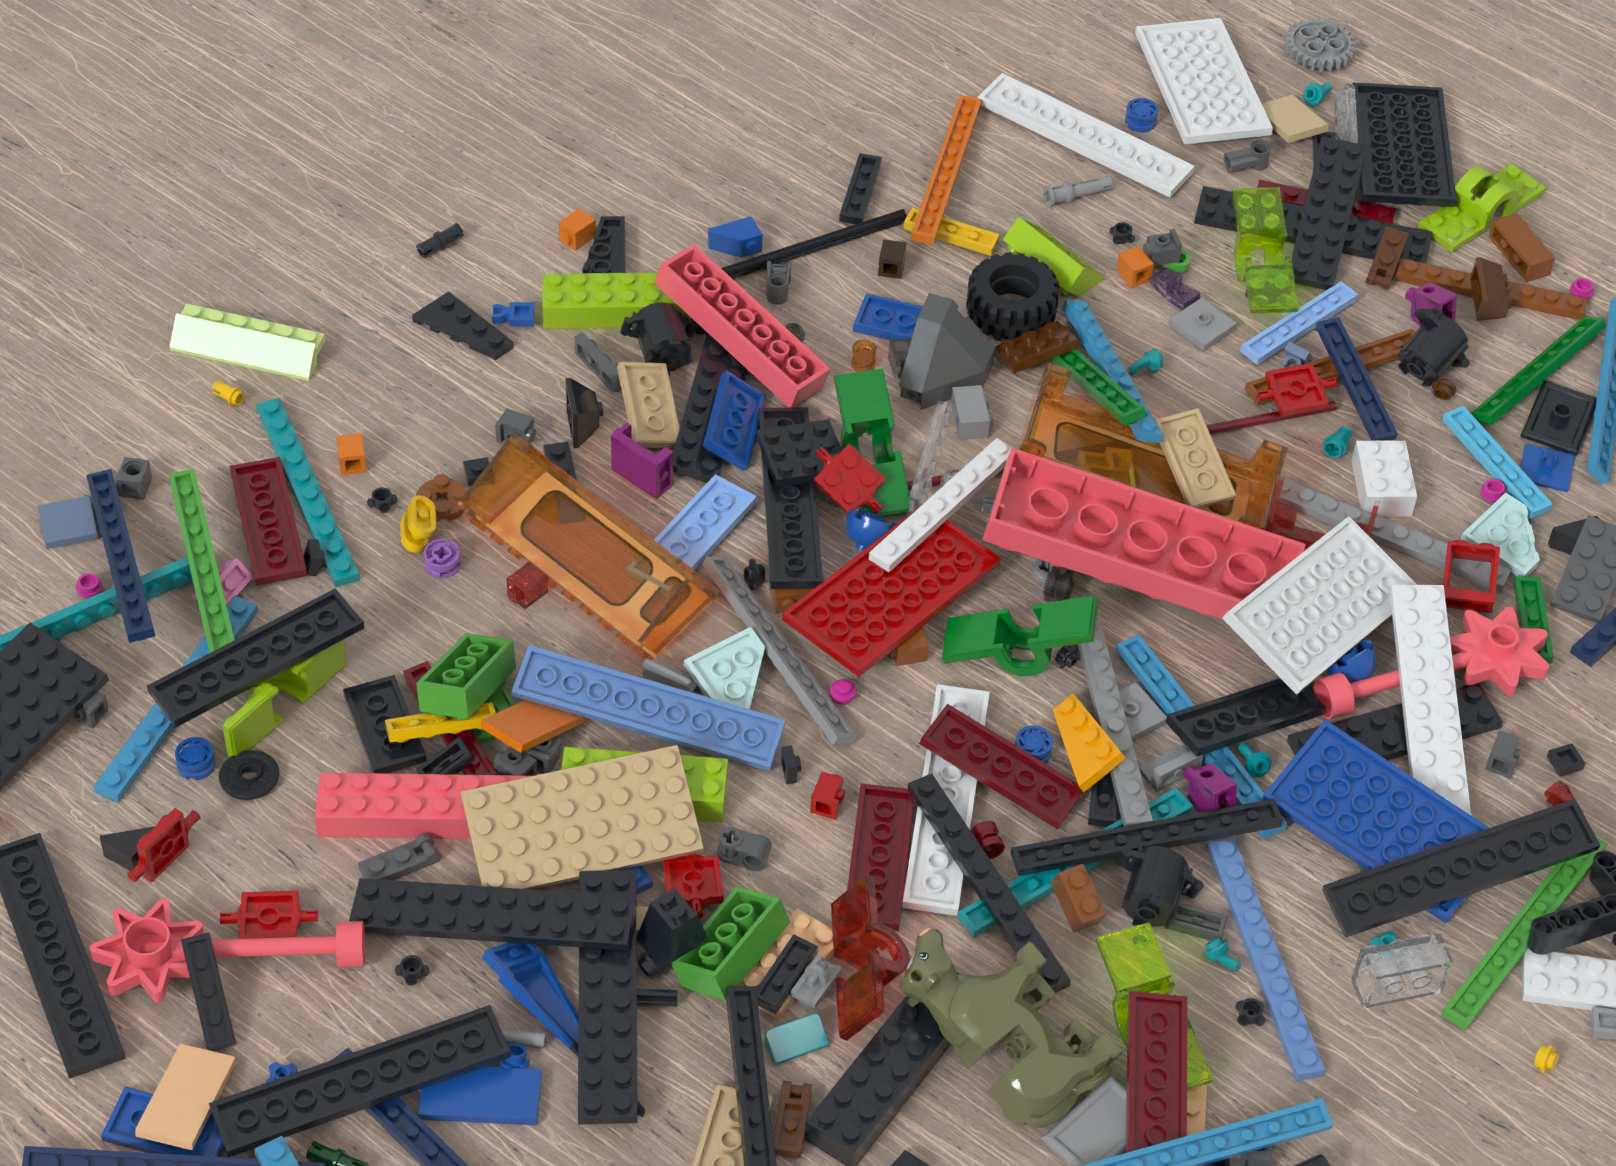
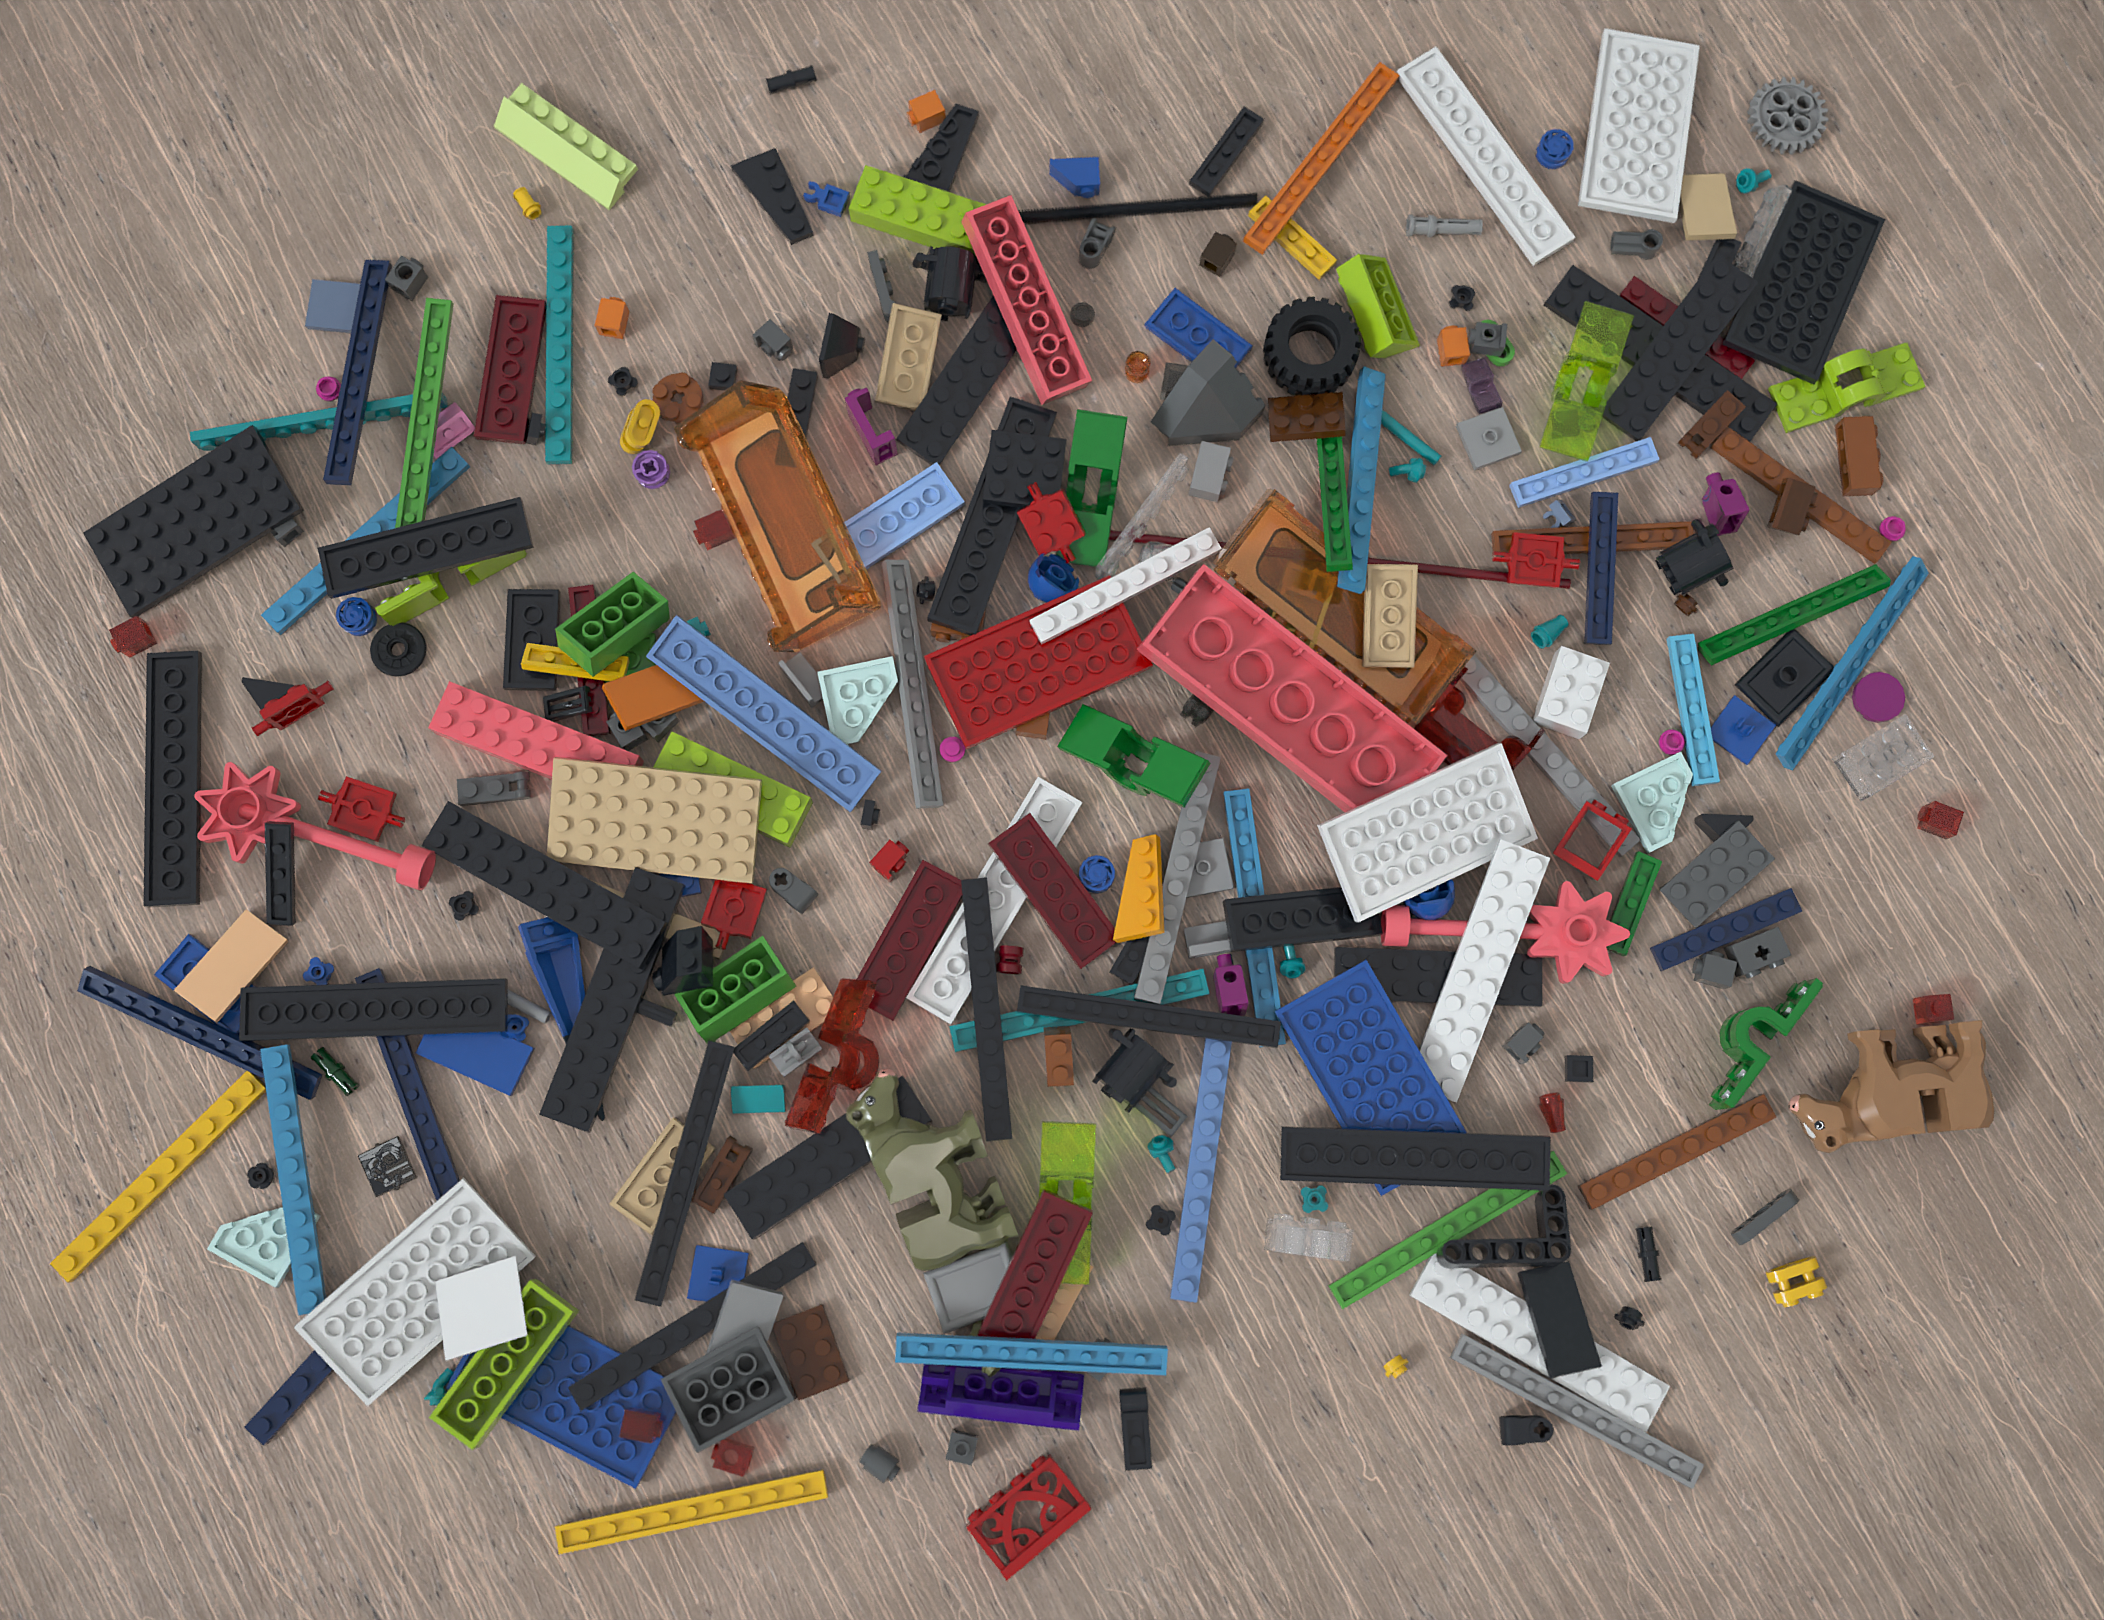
camera: 20 degrees right, 30 degrees up
(734, 420) = (979, 404): blue tile -> none
(1135, 342) = (1409, 438): none -> teal piece

